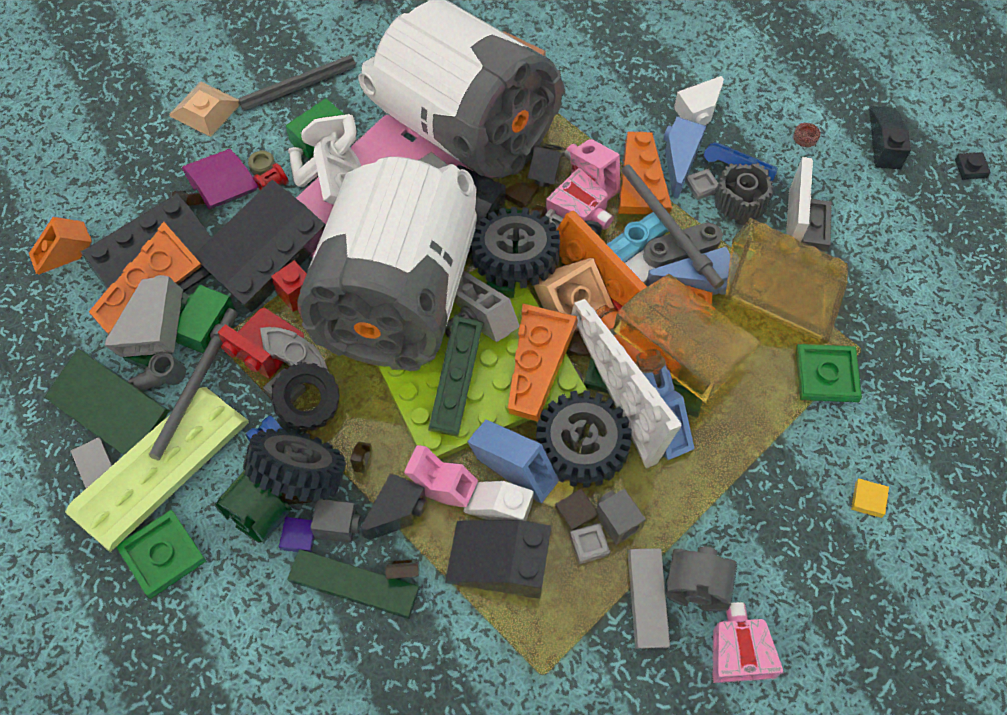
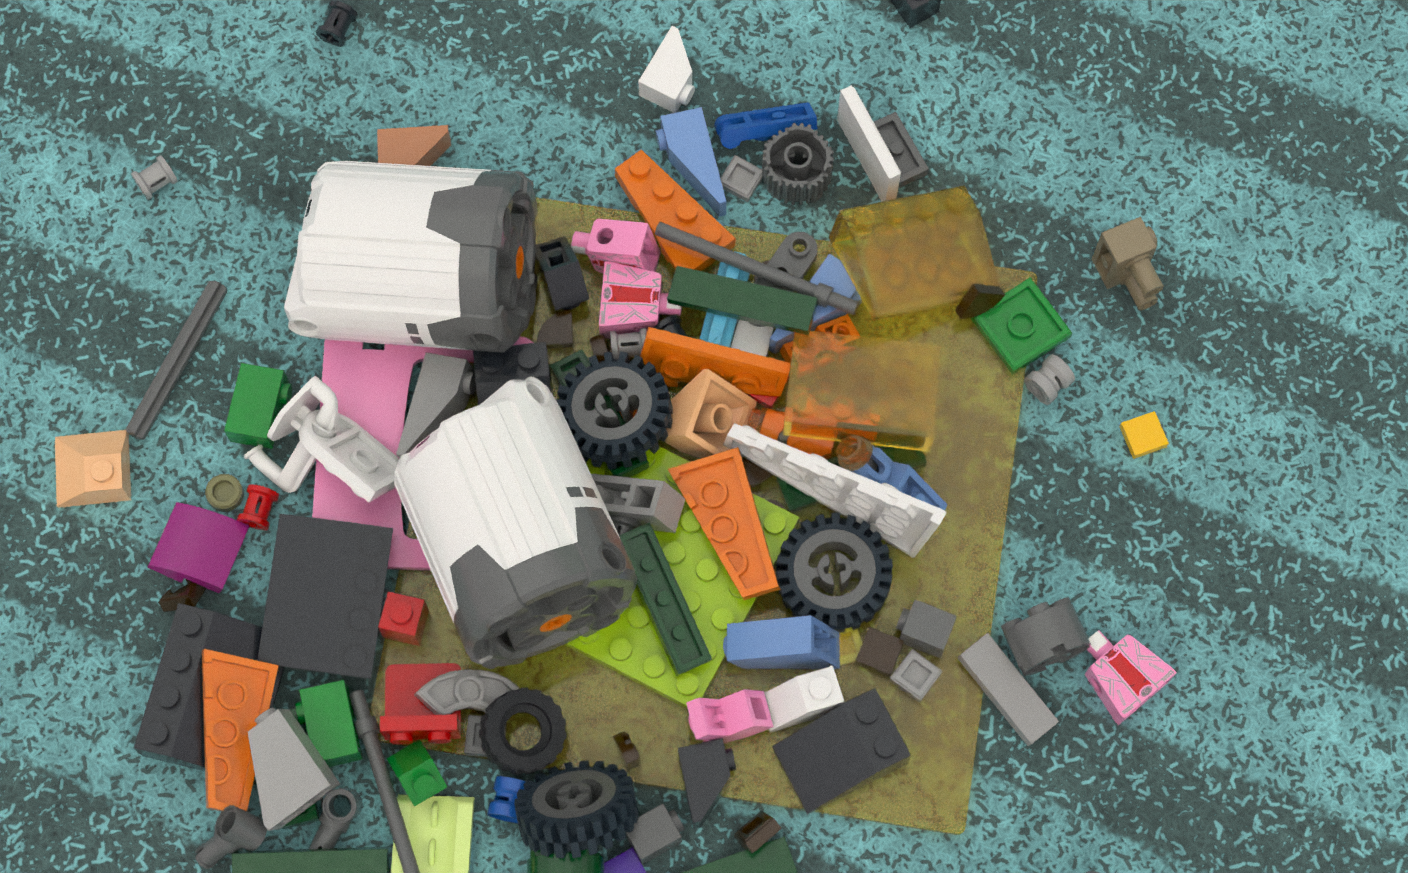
camera: 35 degrees left, 10 degrees up
(59, 244) = (88, 756): orange slope -> none
(88, 337) = (233, 831): none -> dark grey pin
(224, 379) = (417, 772): none -> green brick
(648, 236) = (742, 300): none -> dark green tile
(806, 134) = (810, 35): clear red tile -> none
(808, 335) = (979, 300): none -> dark brown tile
(825, 418) = (1049, 379): none -> light grey wheel
(934, 376) = (1125, 259): none -> dark tan brick

